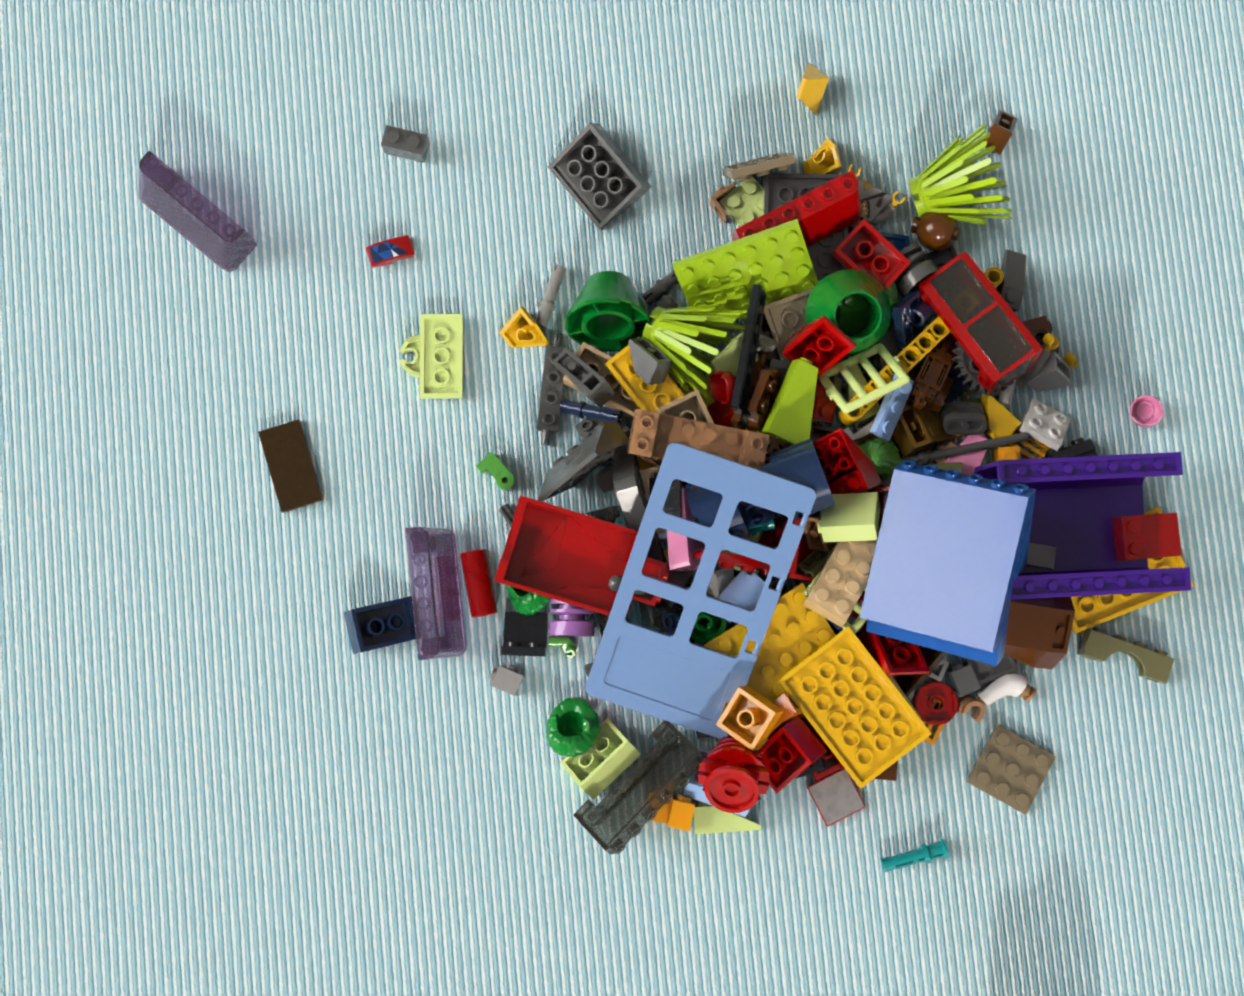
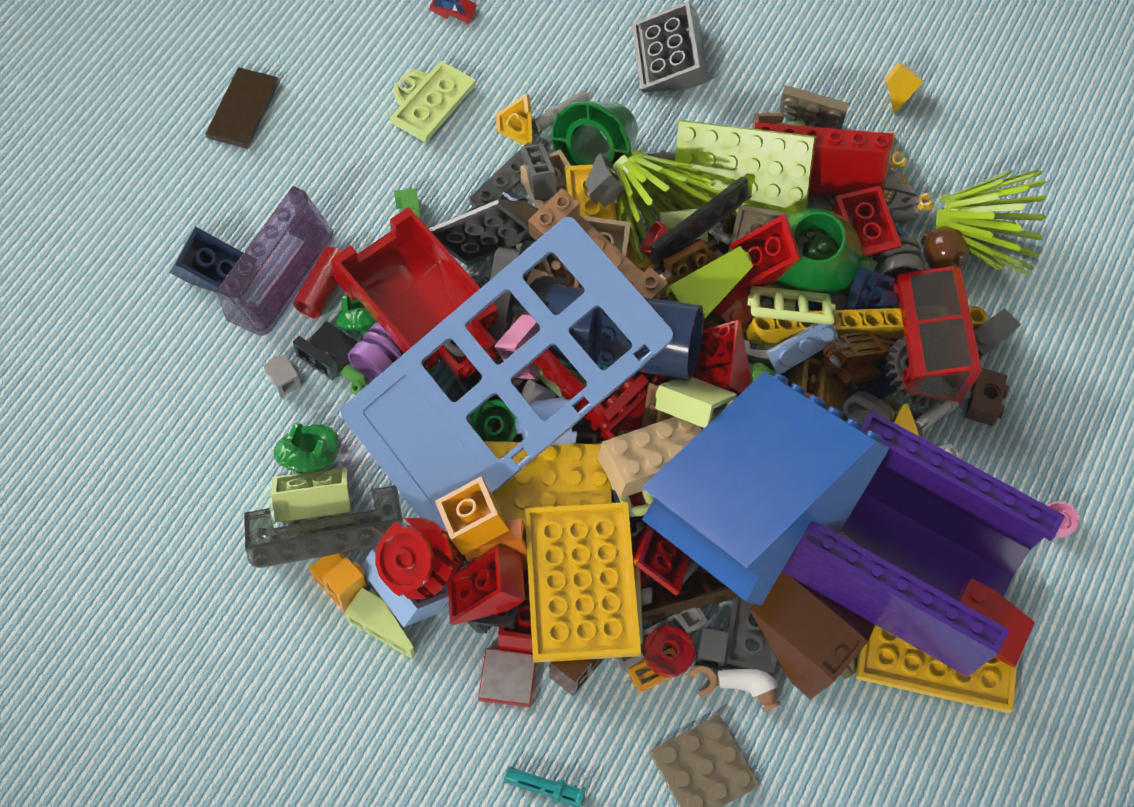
camera: 30 degrees right, 20 degrees down
(1001, 131) = (1058, 212): reddish brown slope -> none
(1050, 369) = (979, 420): light grey torso -> none
(1150, 664) = (920, 758): olive arch -> none

